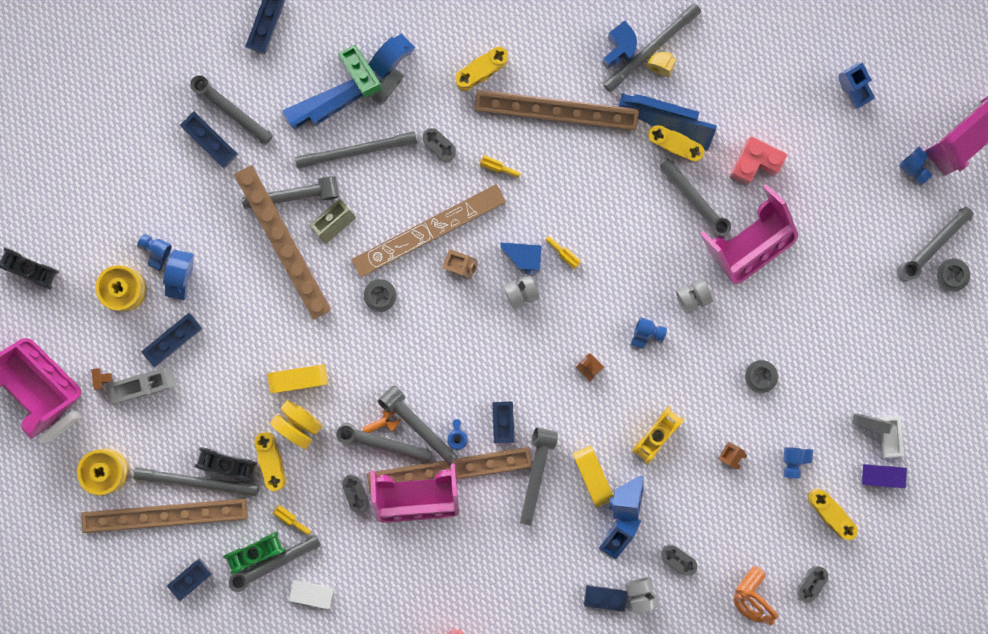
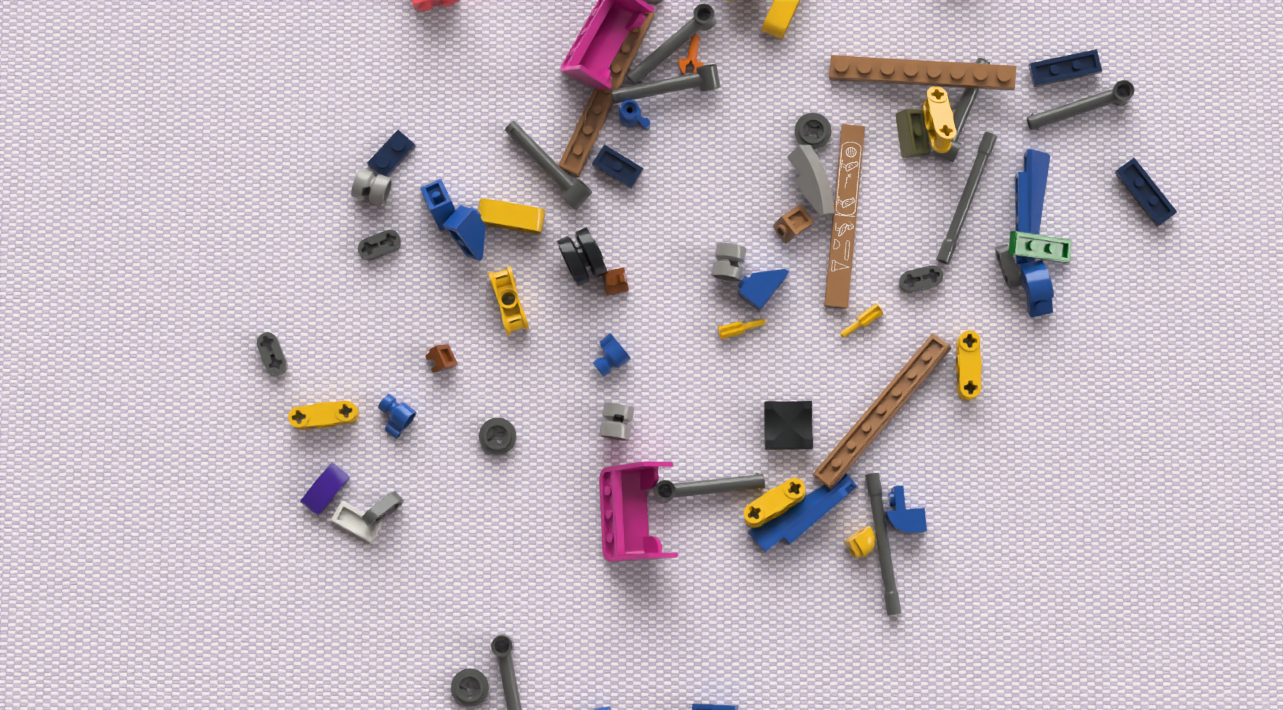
camera: 125 degrees right, 5 degrees down
(312, 205) = (939, 119): none -> yellow piece
(419, 270) = (812, 179): none -> light grey slope
(589, 400) = (585, 255): none -> black wheel
(613, 170) = (788, 425): none -> black brick
(746, 592) = (299, 279): orange piece -> none
(757, 155) = (713, 569): coral brick -> none

